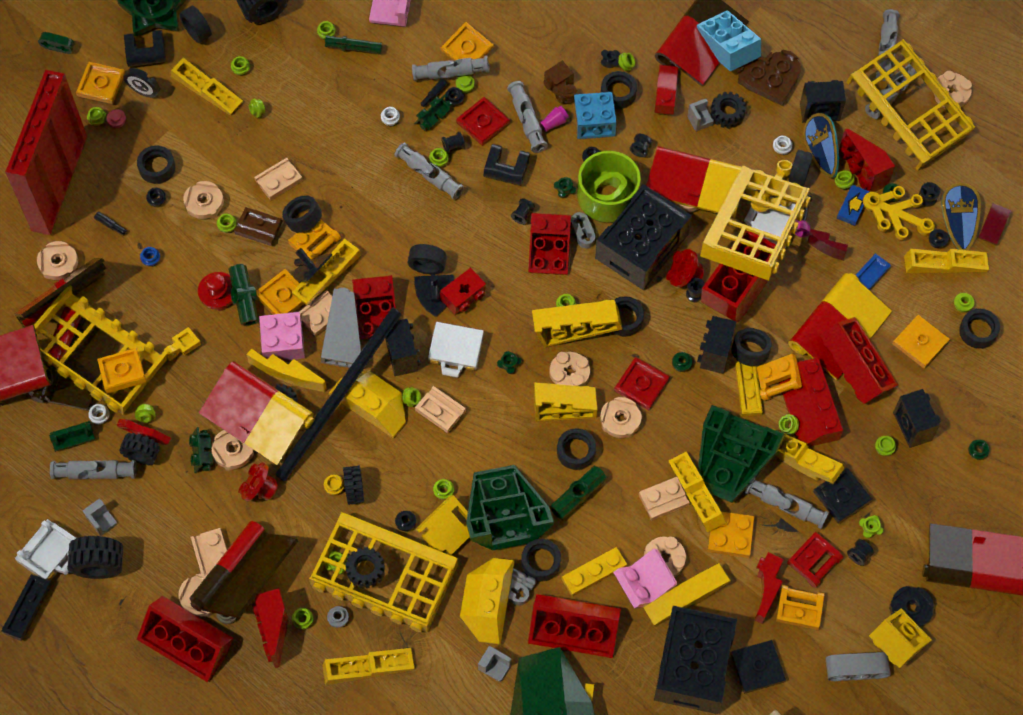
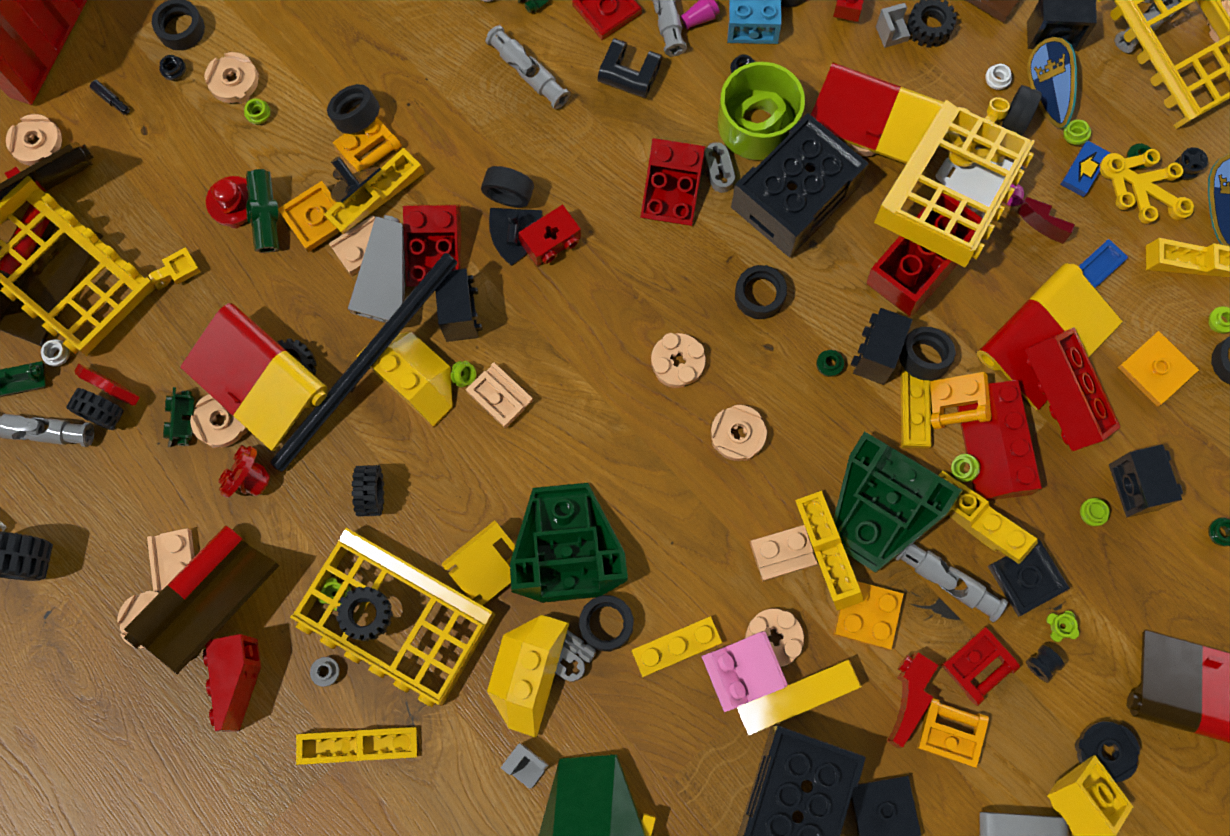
camera: 10 degrees right, 10 degrees up
(99, 517) = (32, 496): light grey panel -> none
(121, 370) = (85, 299): light orange plate -> none
(145, 413) = (113, 359): lime plate -> none
(150, 251) = (148, 142): blue plate -> none
(184, 638) = (117, 678): red slope -> none
(258, 226) = (296, 120): reddish brown plate -> none
(278, 179) = (332, 59): light nougat plate -> none
(282, 336) = (304, 274): bright pink brick -> none
(290, 373) = (310, 323): yellow slope -> none
(299, 613) = (271, 662): lime plate -> none
(334, 484) = (342, 484): yellow plate -> none
(405, 526) = (441, 548): black plate -> none
(439, 152) = (543, 44): lime plate -> none
(443, 483) = (483, 501): lime plate -> none
(453, 142) = (563, 31): black bush -> none
(455, 347) = (530, 311): white piece -> none
(508, 356) = (598, 331): dark green plate -> none
(522, 211) = (643, 133): black bush -> none
(564, 182) = (702, 99): dark green plate -> none
(564, 402) = (665, 404): yellow wedge -> none
(565, 298) = (684, 258): lime plate -> none
(574, 626) = (639, 723): red slope -> none
(576, 321) = (693, 294): yellow wedge -> none
(576, 464) = (681, 451): black tyre -> none
(587, 484) = (654, 545): dark green piece -> none
(641, 145) = (810, 59): black wheel -> none
(642, 383) = (772, 387): red tile -> none
(684, 268) = (849, 235): red plate -> none
(697, 284) = (862, 257): black bush -> none
(866, 161) = (1112, 109): red slope -> none
(938, 243) = (1192, 231): black plate -> none

